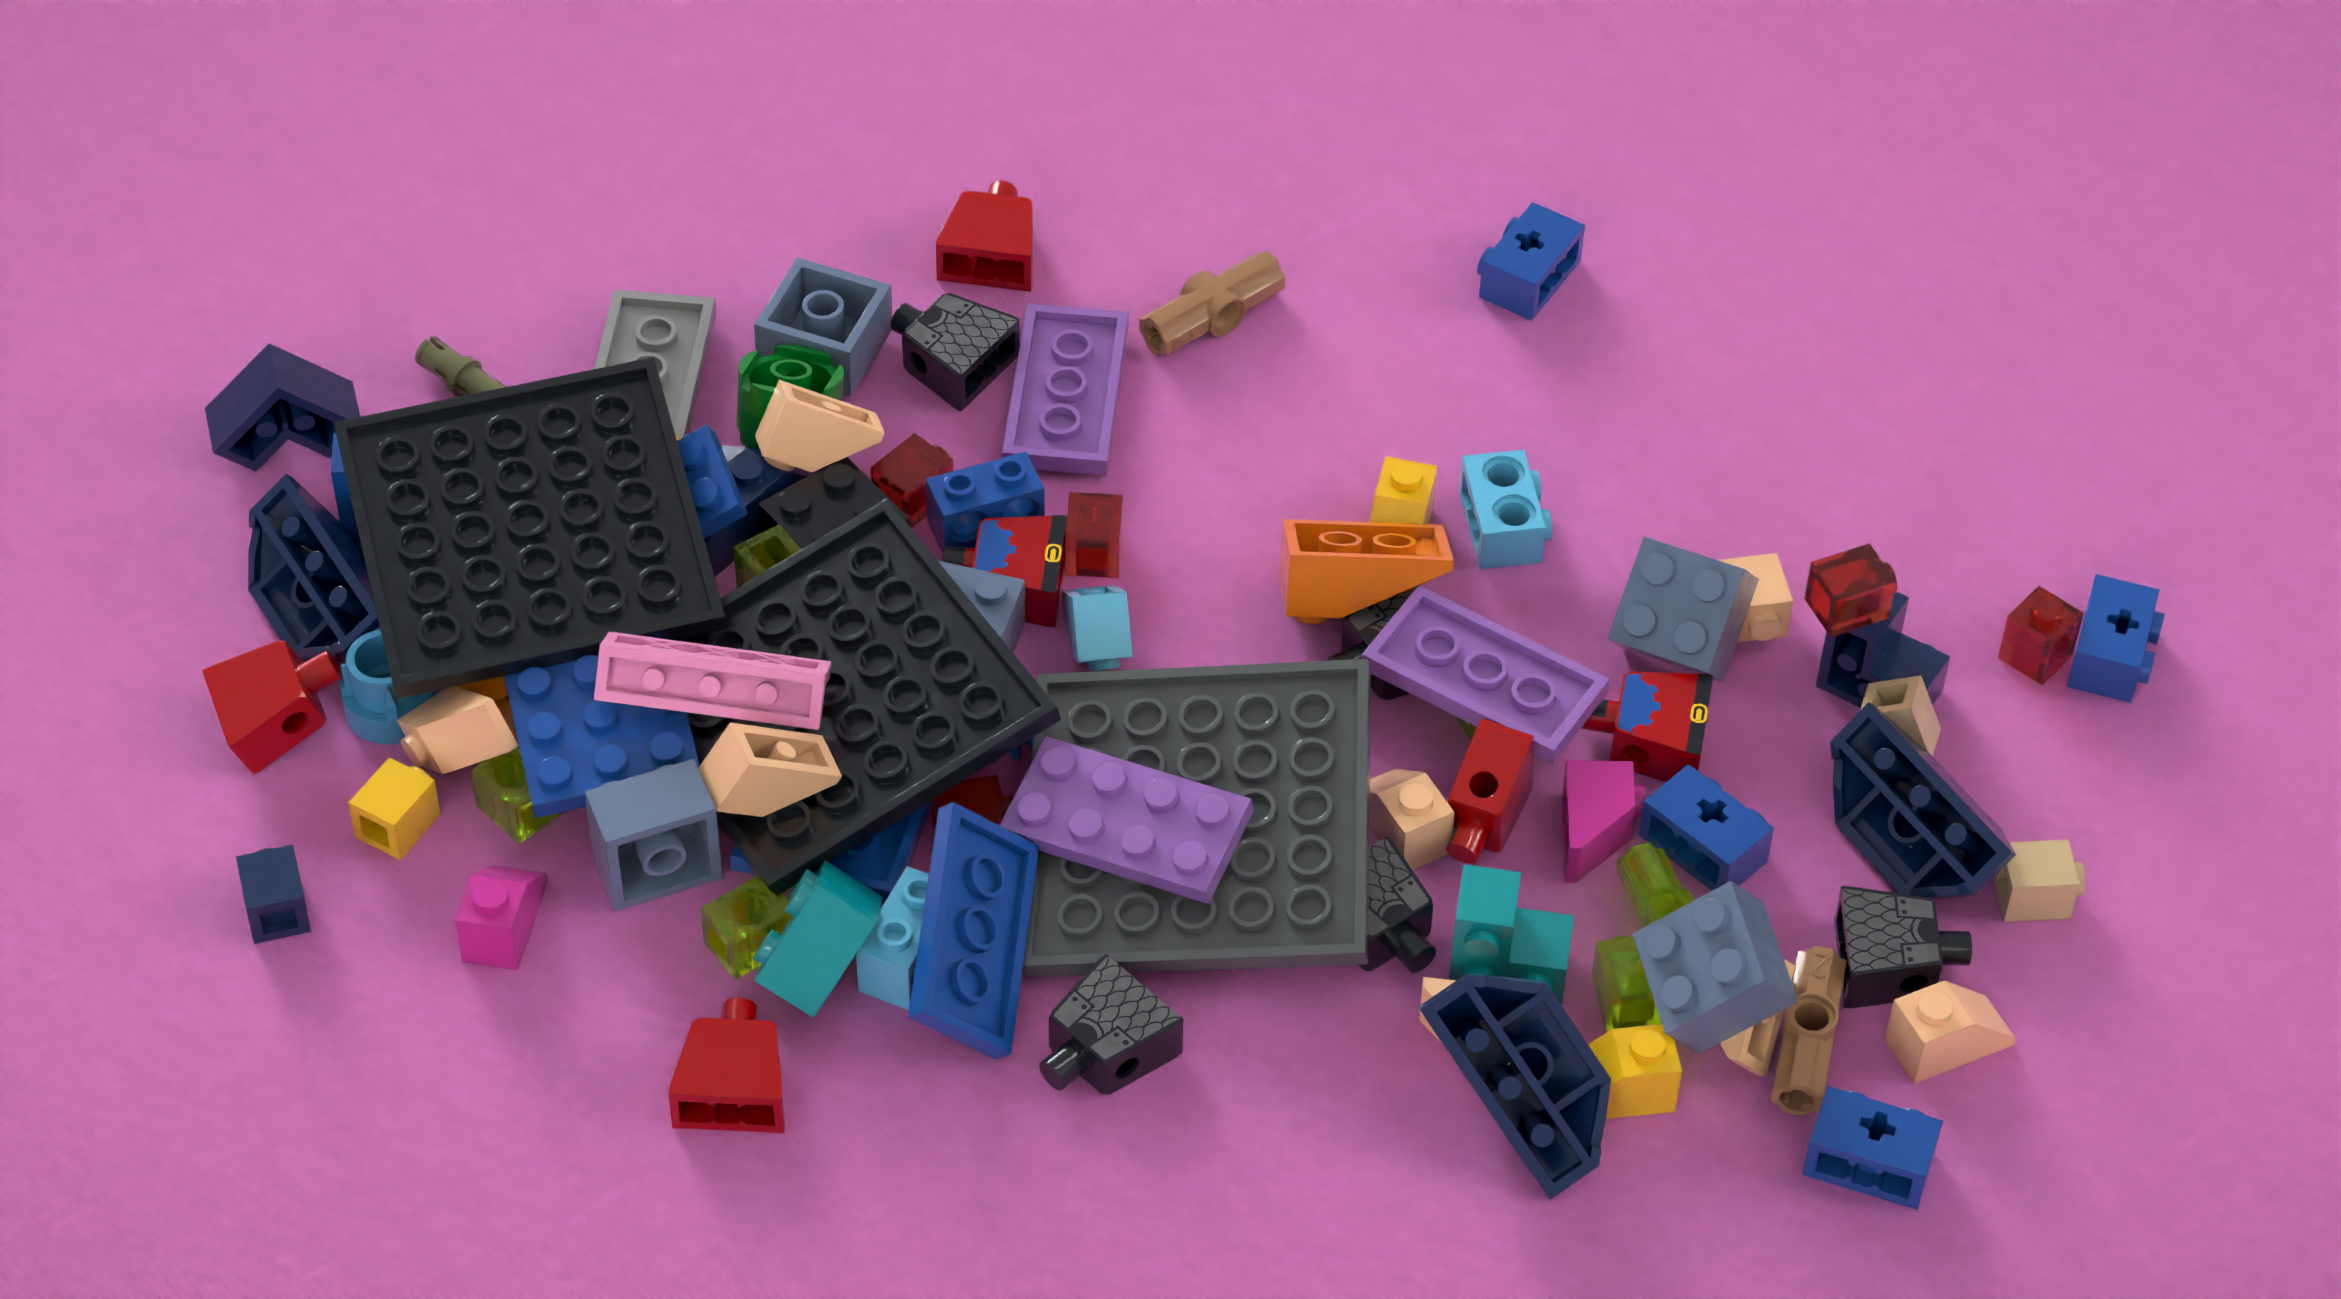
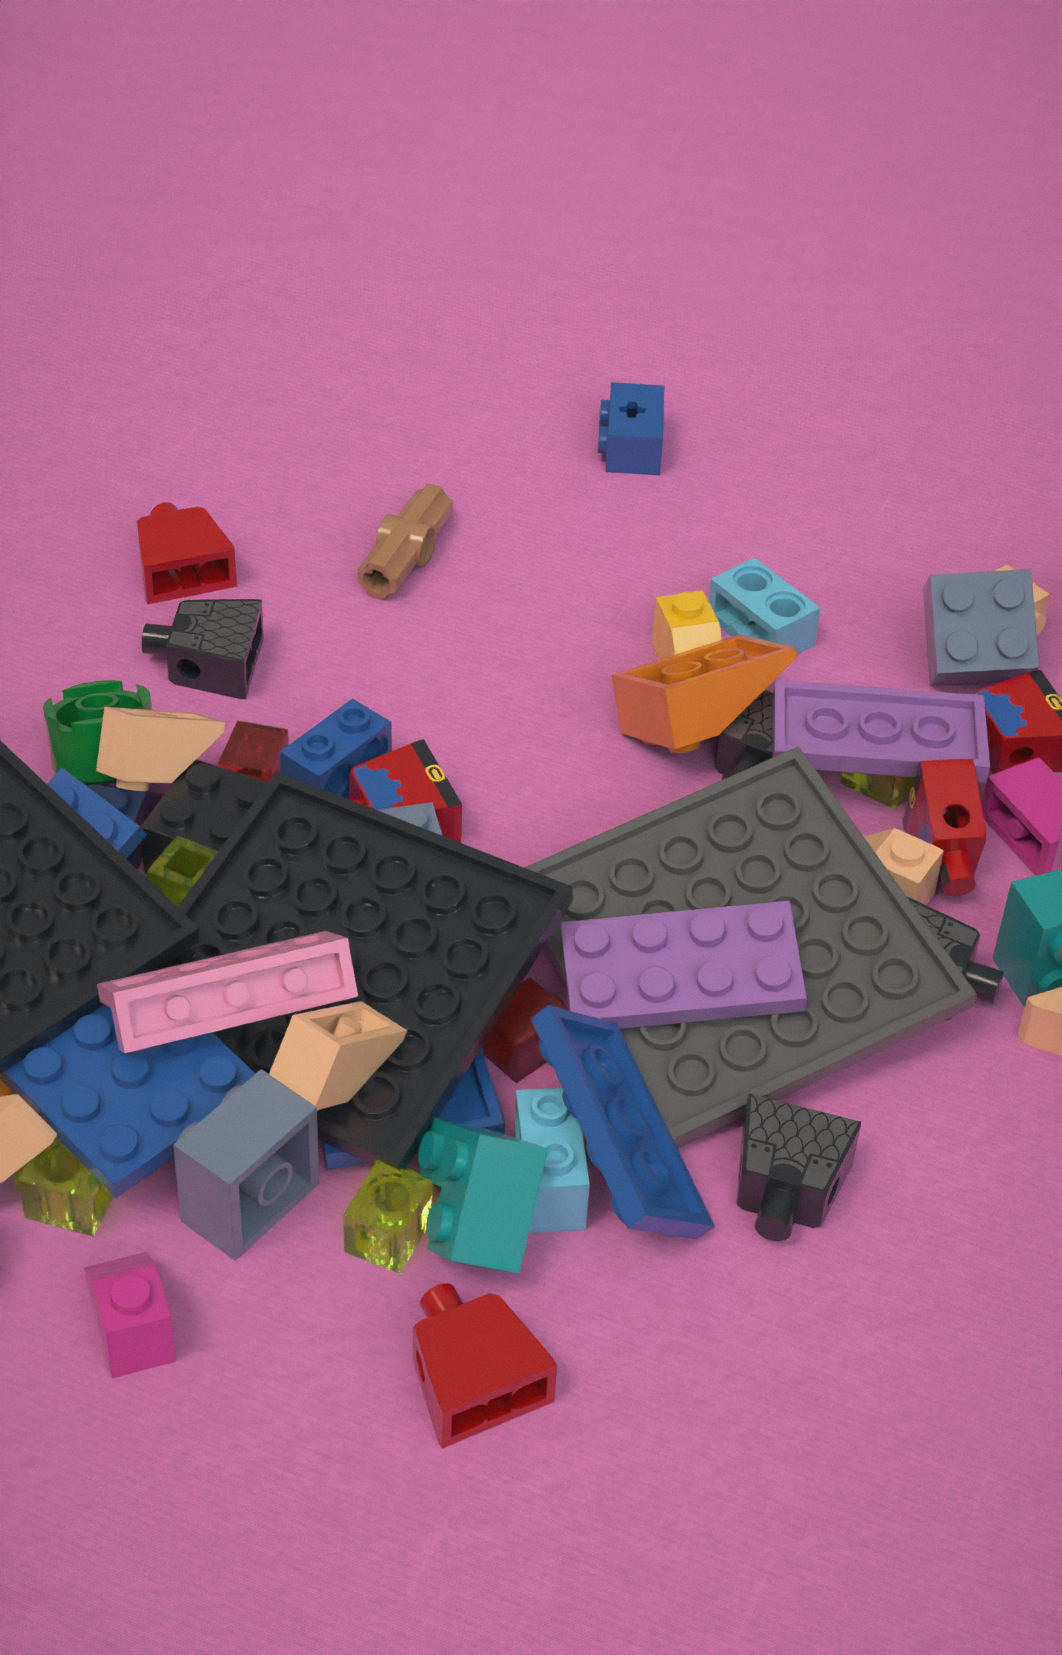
camera: 30 degrees left, 5 degrees down
(830, 313) = (83, 648): sand blue brick -> none
(1067, 388) = (333, 645): medium lavender plate -> none
(1093, 535) = (454, 745): clear red brick -> none
(1098, 625) = (511, 820): medium azure slope -> none

